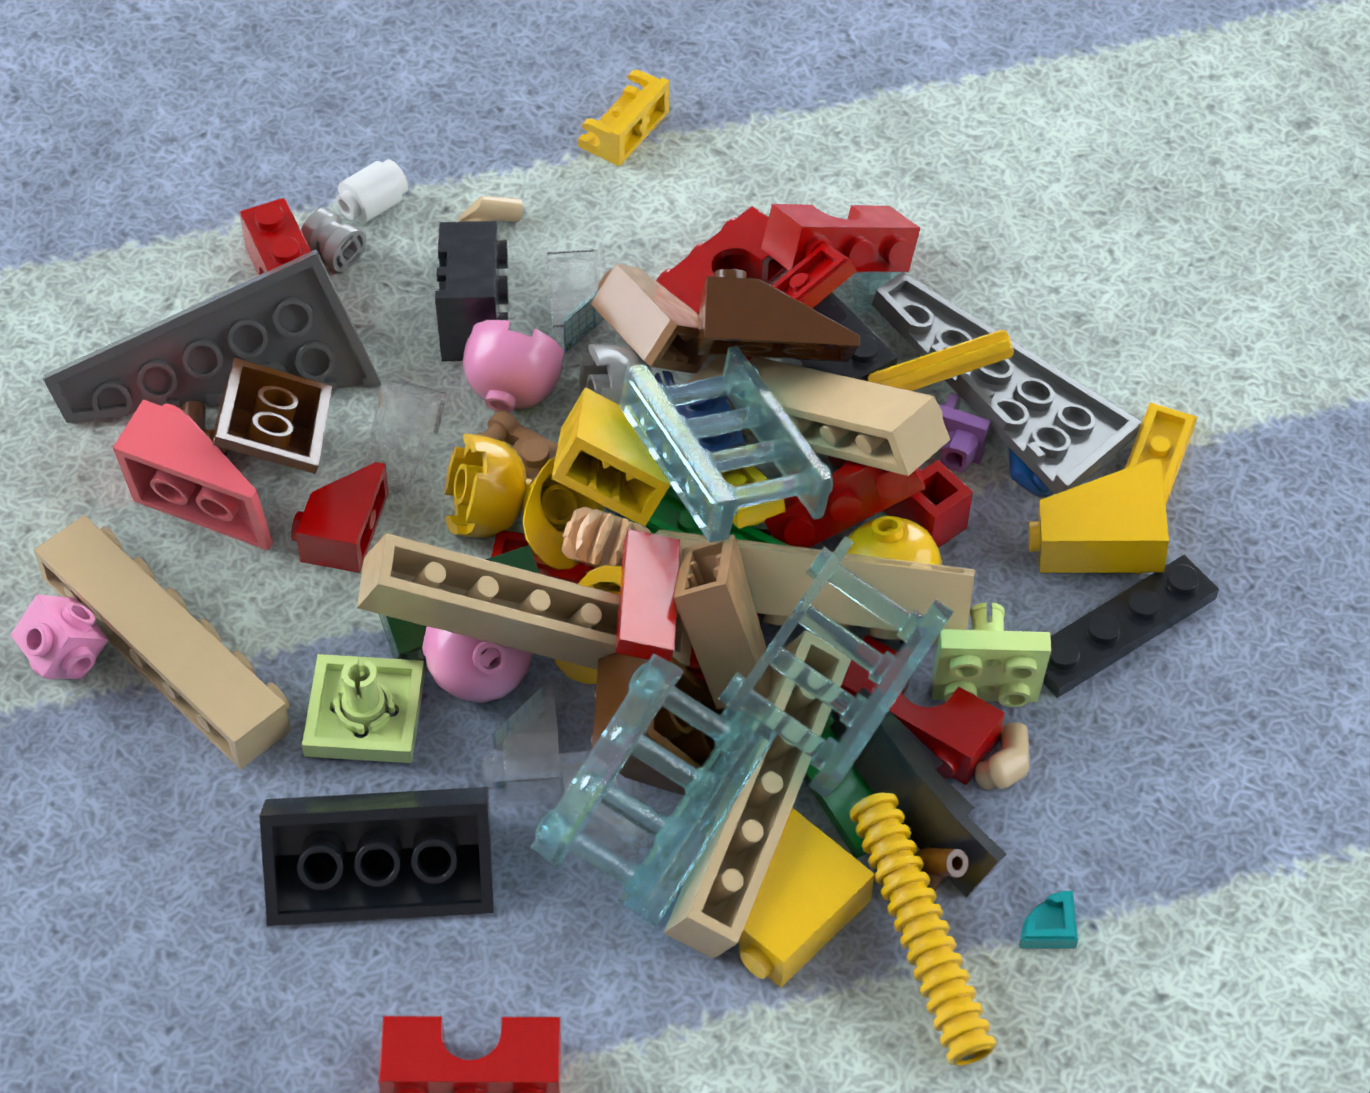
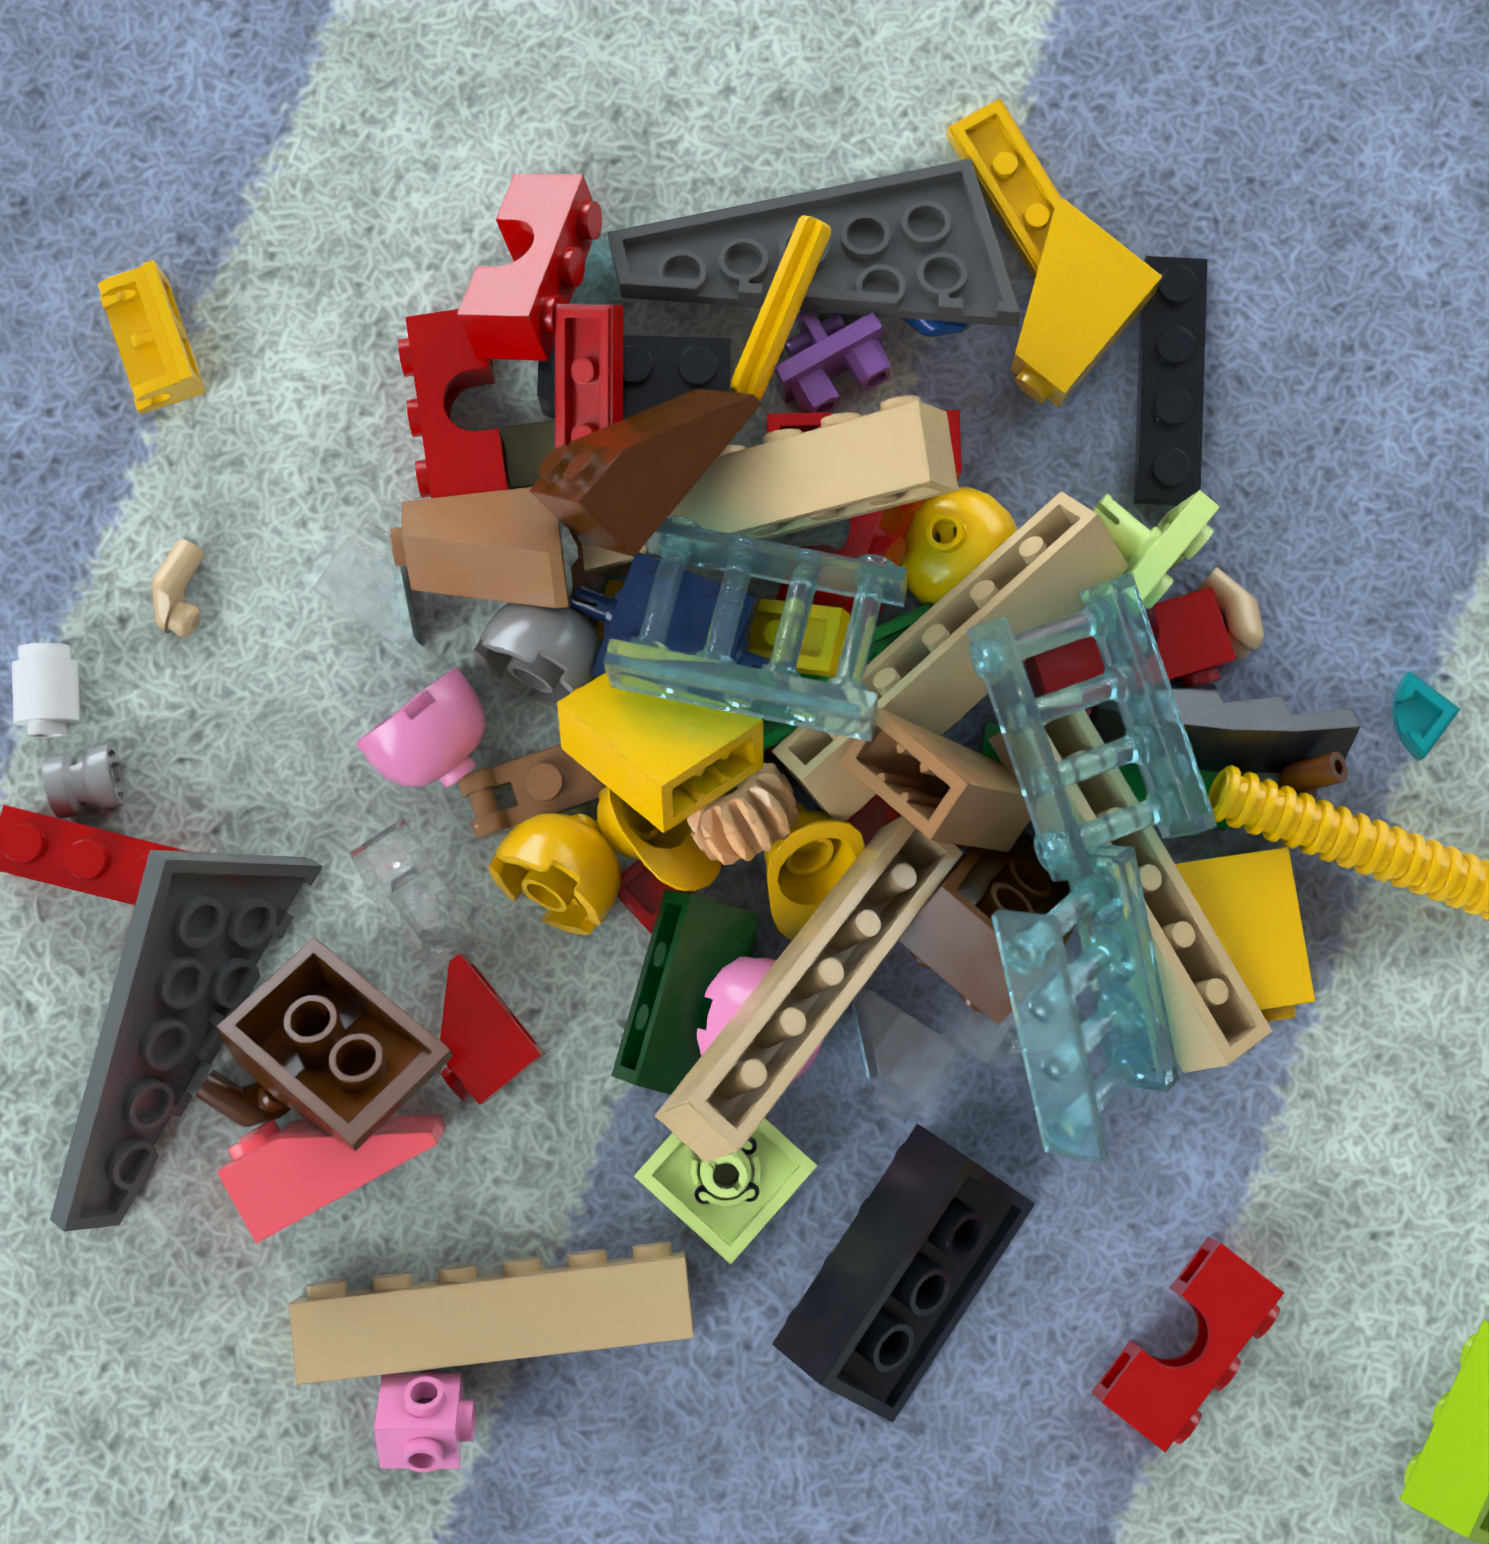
camera: 55 degrees left, 30 degrees up
(468, 282) = (274, 686): black wedge -> none
(646, 596) = (890, 851): tile -> none

